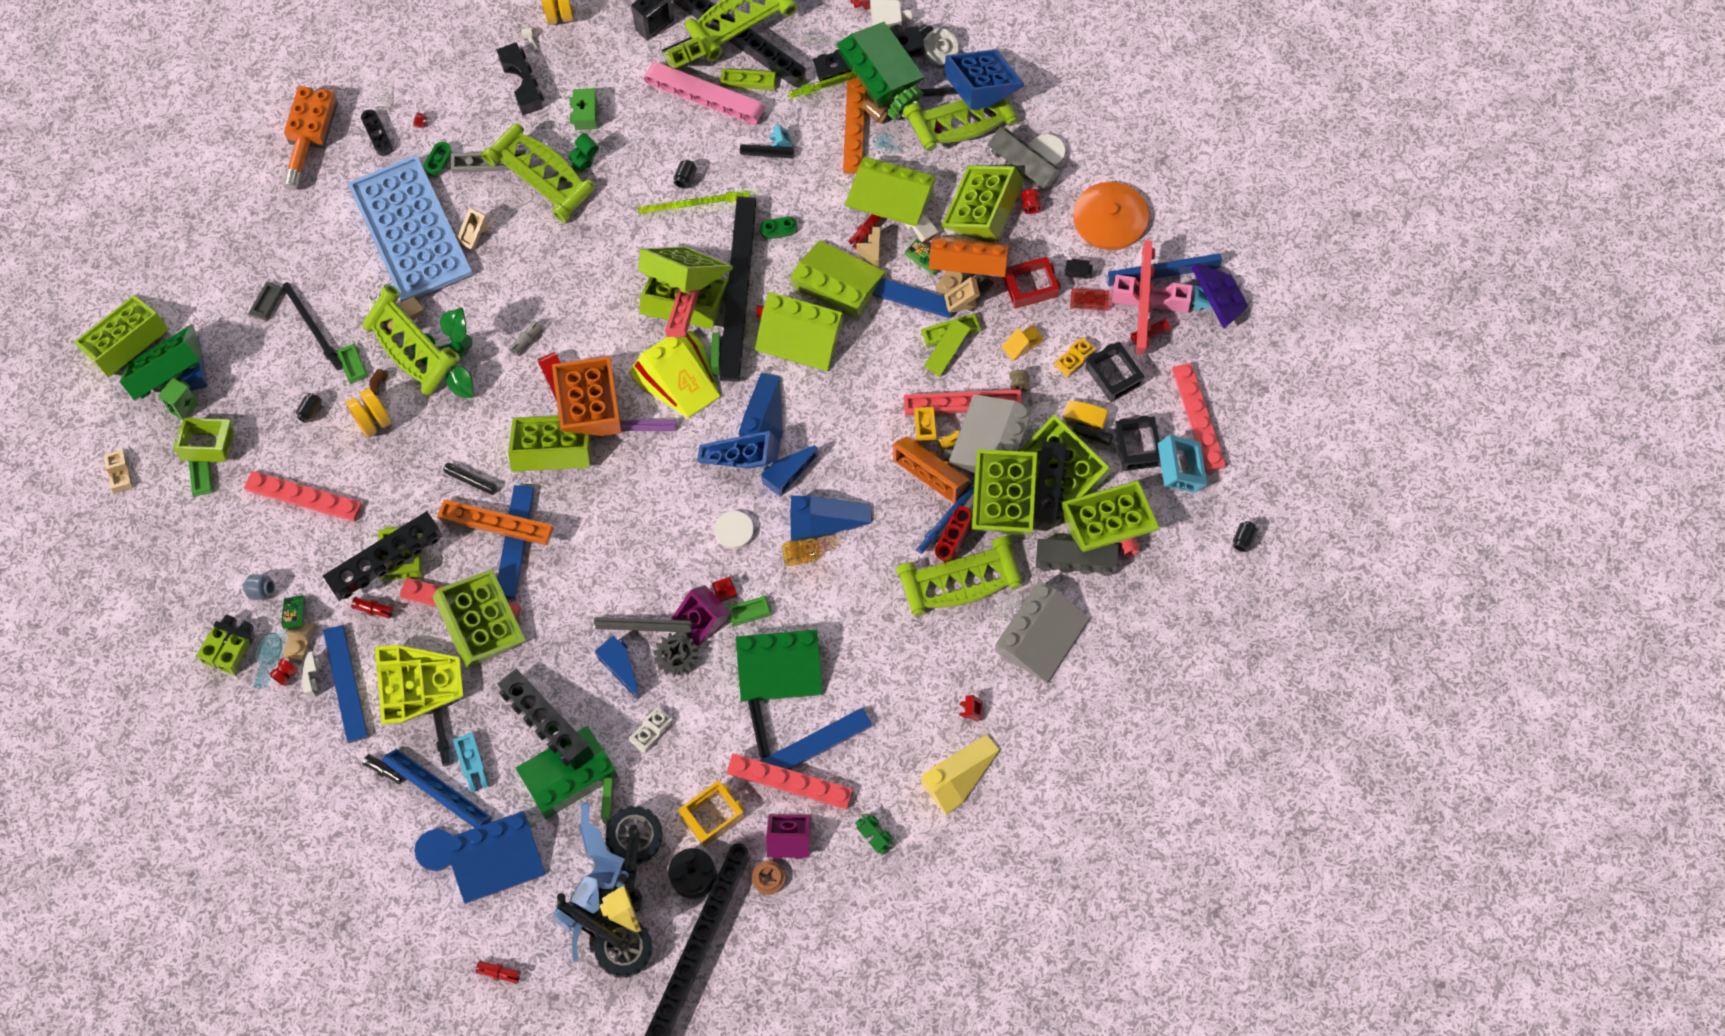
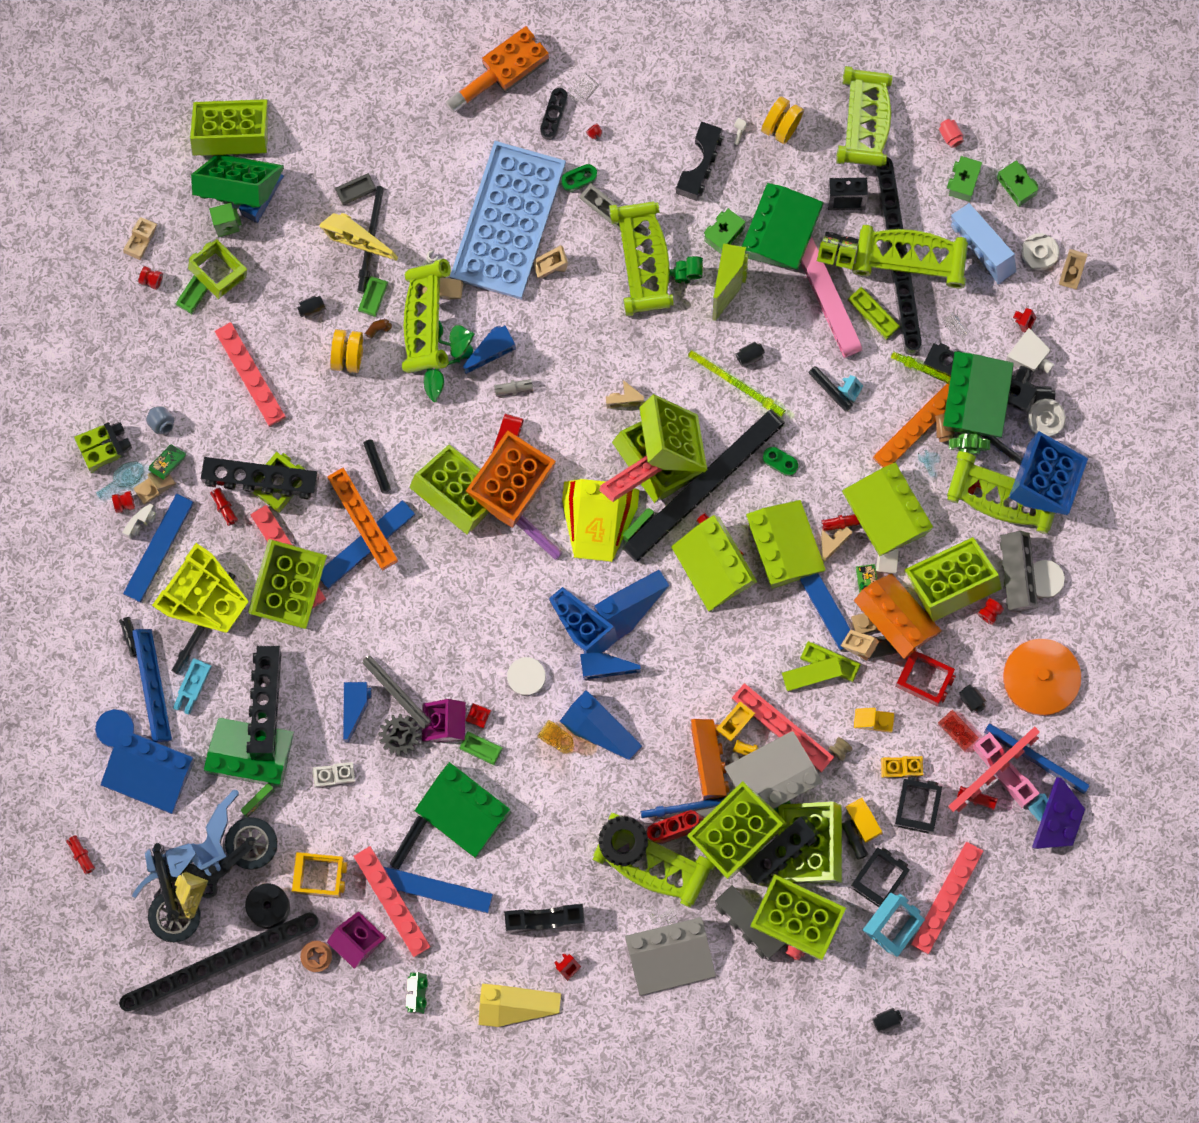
camera: 45 degrees right, 10 degrees up
(153, 491) = (150, 278): none -> red wheel
(293, 330) = (346, 231): none -> light yellow wedge
(484, 317) = (494, 346): none -> blue slope
(618, 125) = (730, 276): none -> lime slope
(622, 274) = (630, 398): none -> tan slope
(625, 71) = (782, 227): none -> green slope
(931, 678) = (544, 919): none -> black arch
(937, 564) = (635, 828): none -> black tyre

